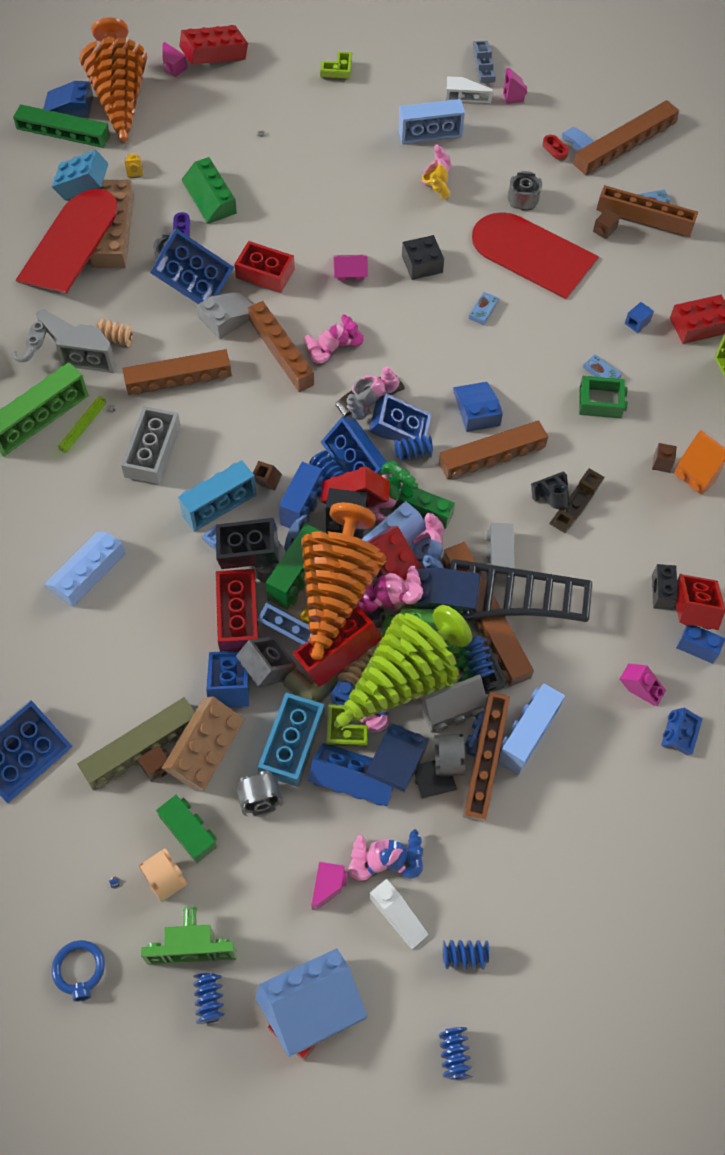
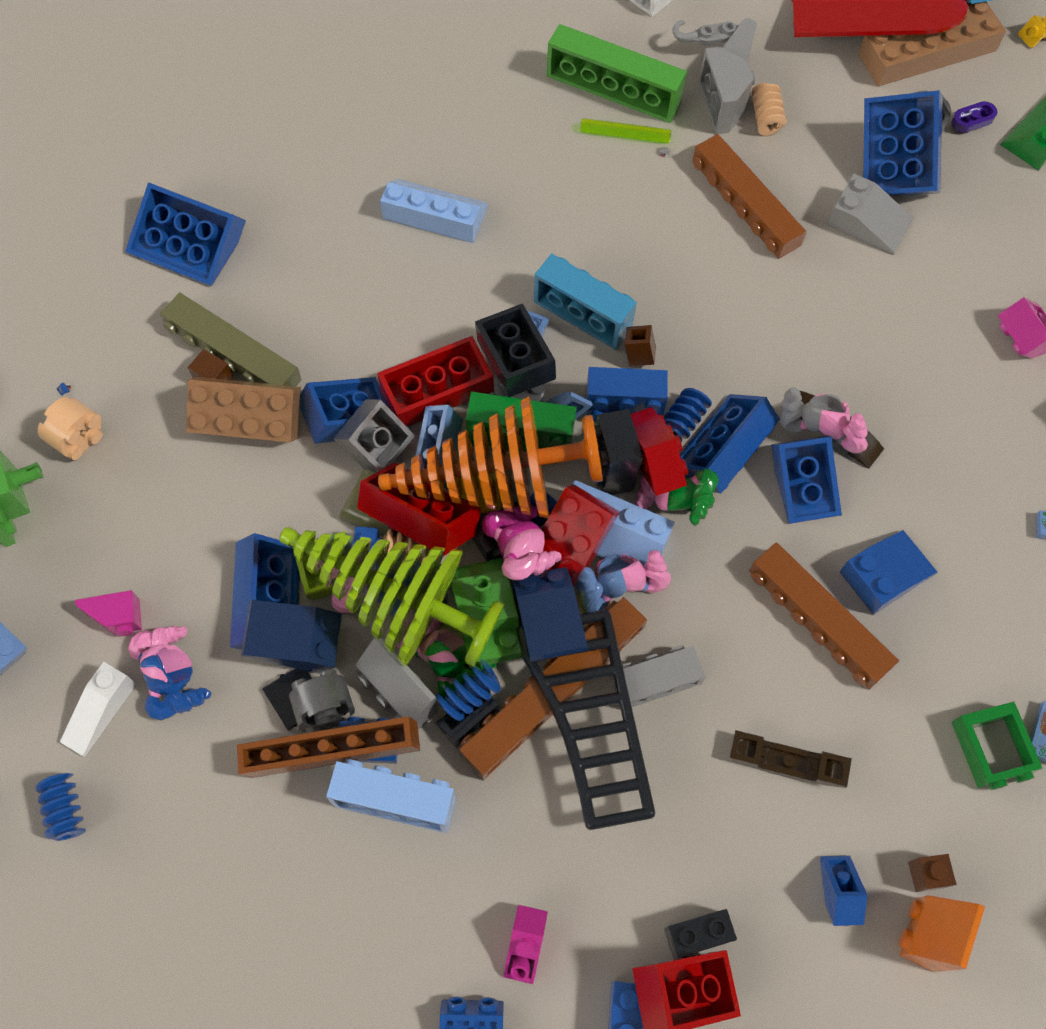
camera: 70 degrees right, 5 degrees up
(151, 445) = (625, 206): light grey brick -> none
(187, 828) = (140, 434): green brick -> none
(259, 794) = (199, 493): flat silver brick -> none
(264, 266) = (964, 228): red brick -> none
(281, 346) = (848, 293): dark orange brick -> none
(292, 738) = (280, 501): dark azure brick -> none
(336, 337) = (897, 350): hair -> none
(415, 447) = (769, 509): blue piece -> none
(427, 503) = (685, 555): green brick -> none
(553, 490) = (791, 718): black pin -> none
(660, 505) = (843, 891): none -> blue slope

